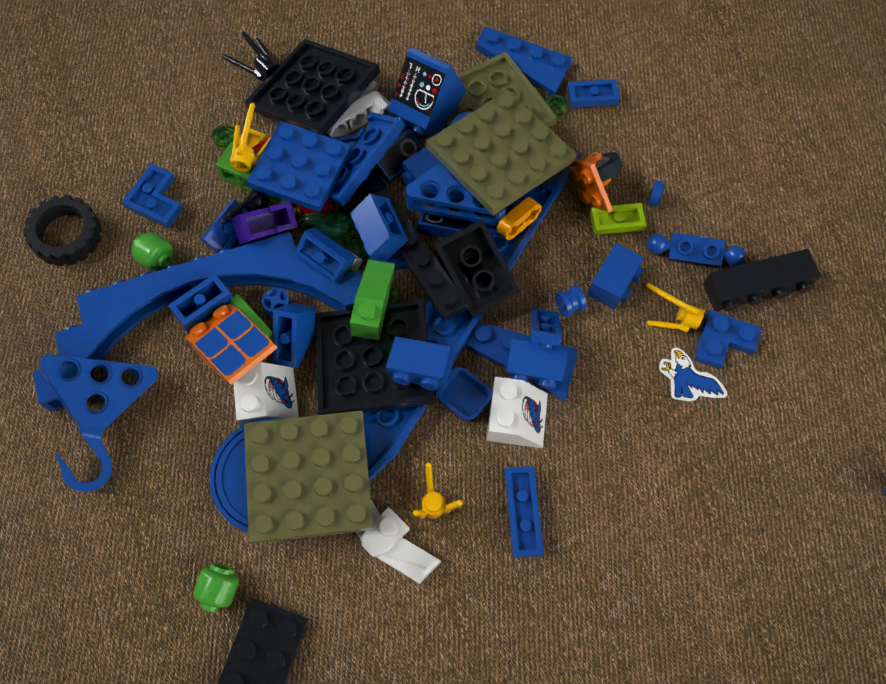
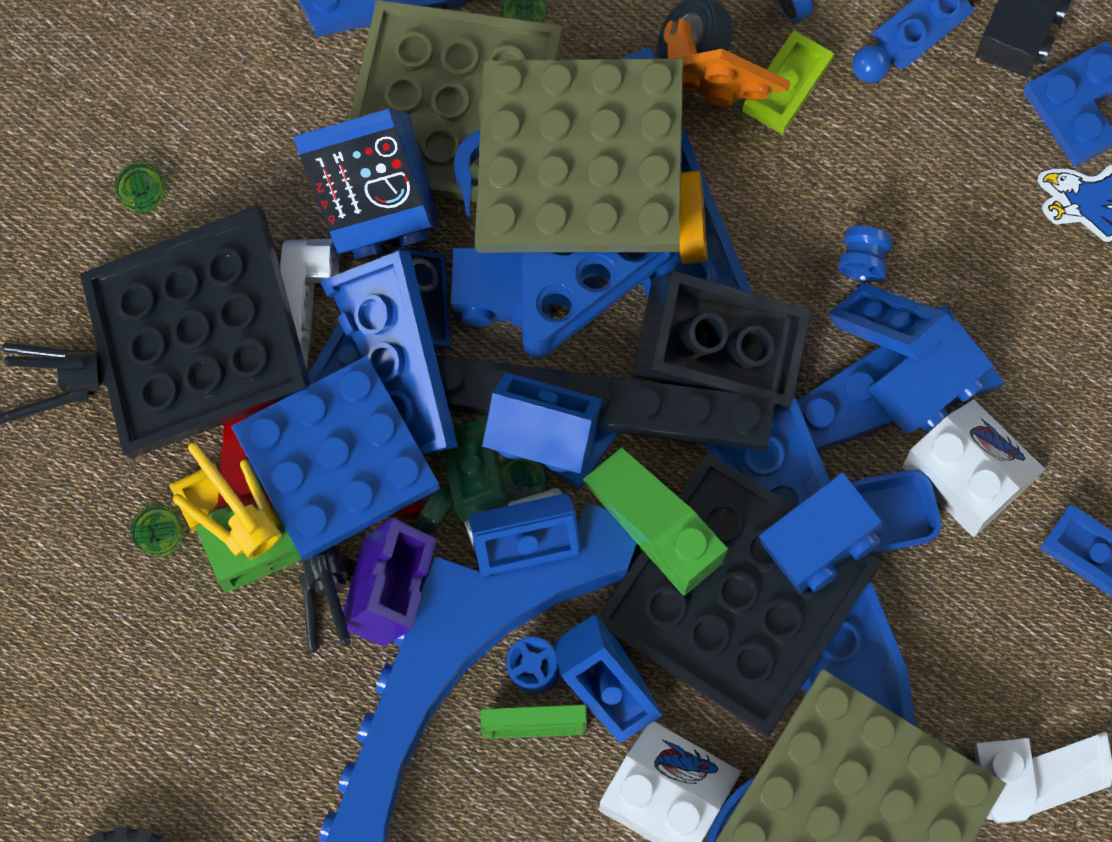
camera: 45 degrees left, 5 degrees up
(148, 197) = (181, 732): blue plate -> none
(152, 251) = (285, 787): bright green head -> none
(200, 302) = (453, 775): blue brick -> none
(220, 235) = (342, 669): blue plate -> none
(230, 343) = (566, 777): slope -> none
(359, 35) = (140, 187): none -> clear green tile
(433, 503) = (1018, 678): yellow plant -> none
(440, 226) = (601, 331): slope -> none
(615, 275) = (878, 162): blue brick -> none
(687, 315) = (1008, 117): yellow plant -> none

